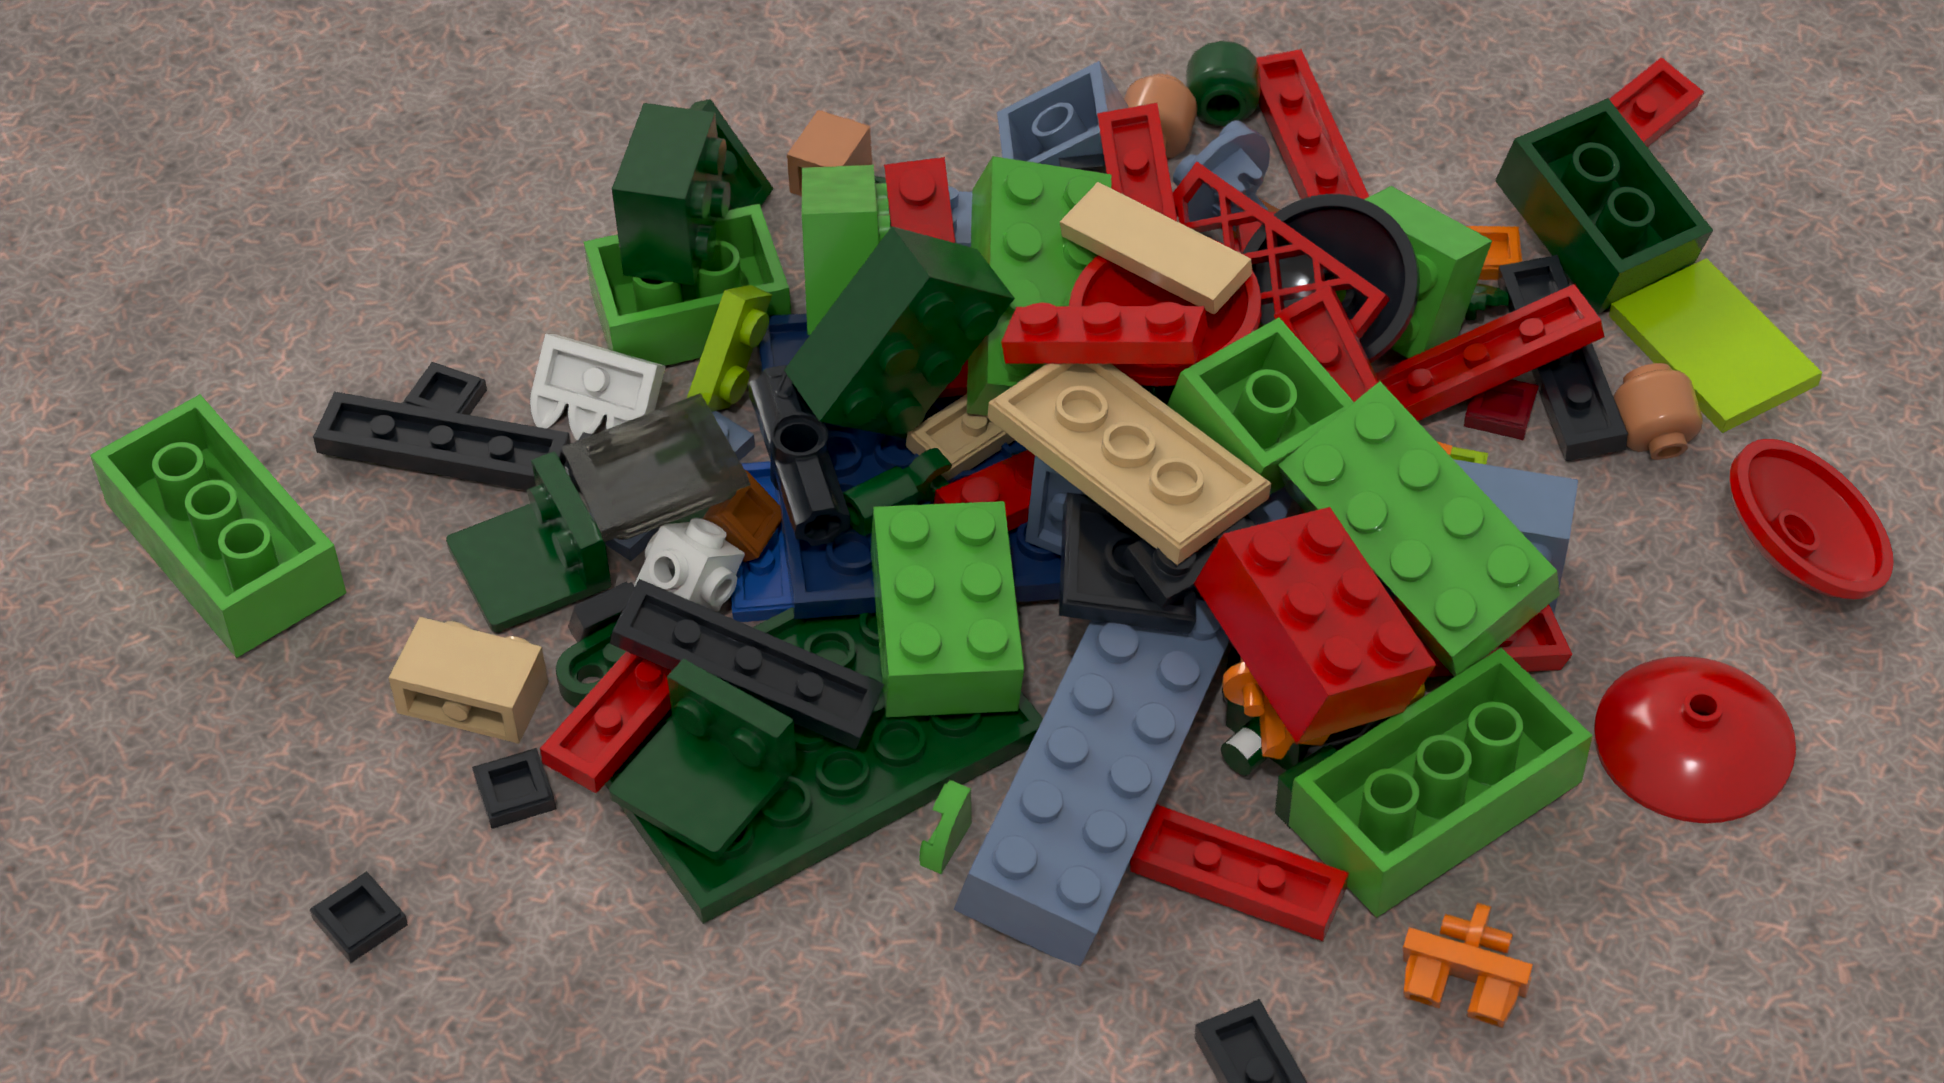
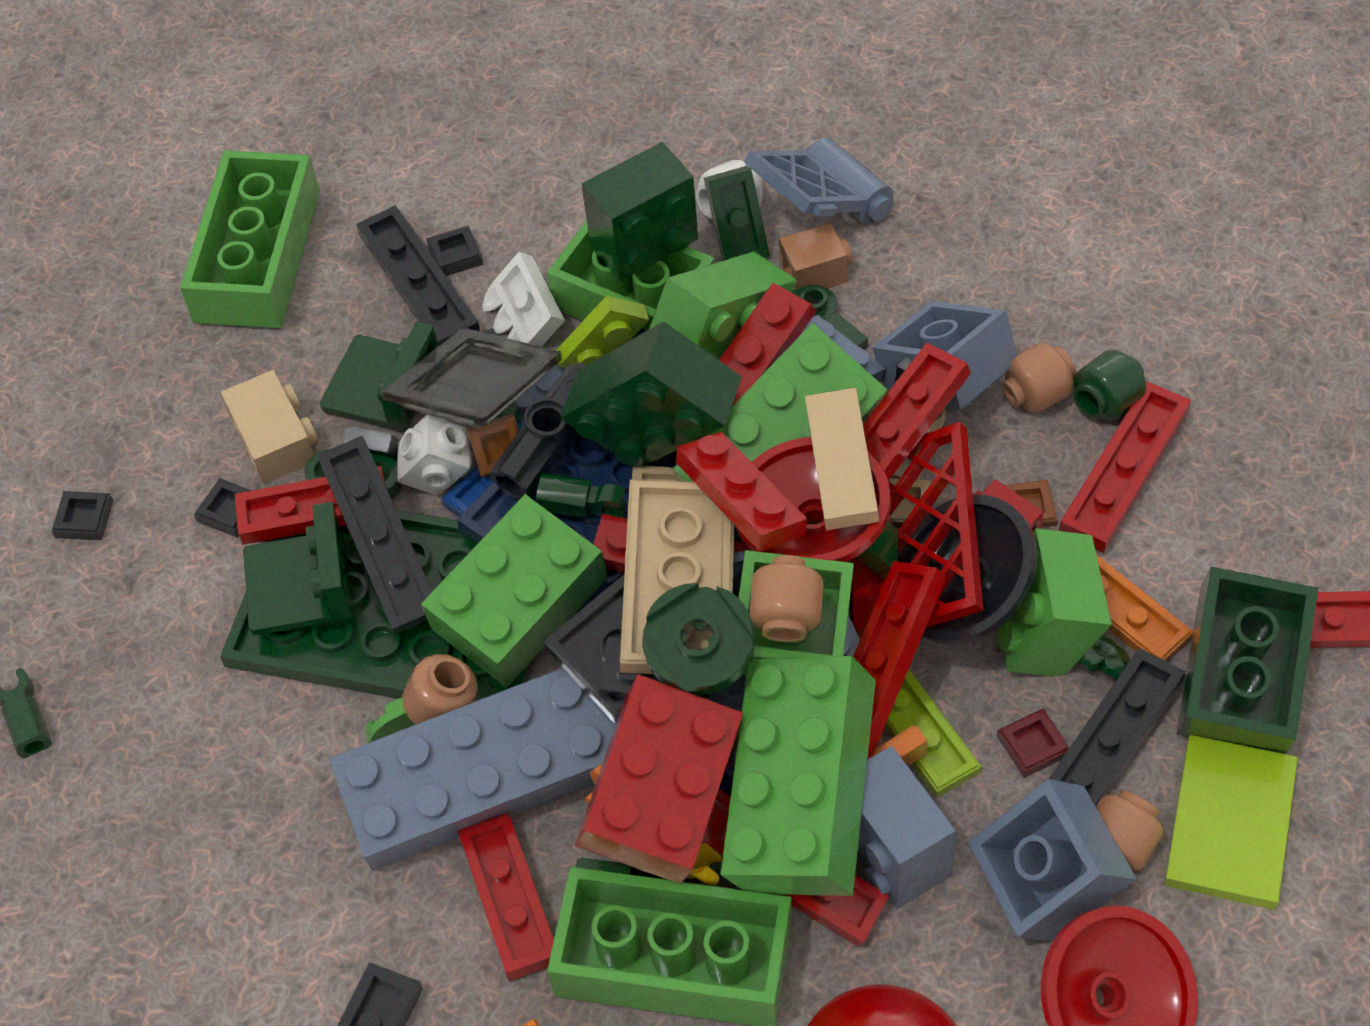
camera: 50 degrees right, 5 degrees up
(769, 74) = (824, 181): none -> sand blue piece
(983, 747) = (437, 687): none -> nougat head
(1228, 502) = (705, 609): none -> dark green plate
(1235, 156) = (1018, 450): sand blue plate -> none
(1278, 374) = (786, 599): none -> nougat head
(1493, 353) = (1039, 700): red plate -> none
(1649, 461) = (1051, 859): none -> sand blue brick

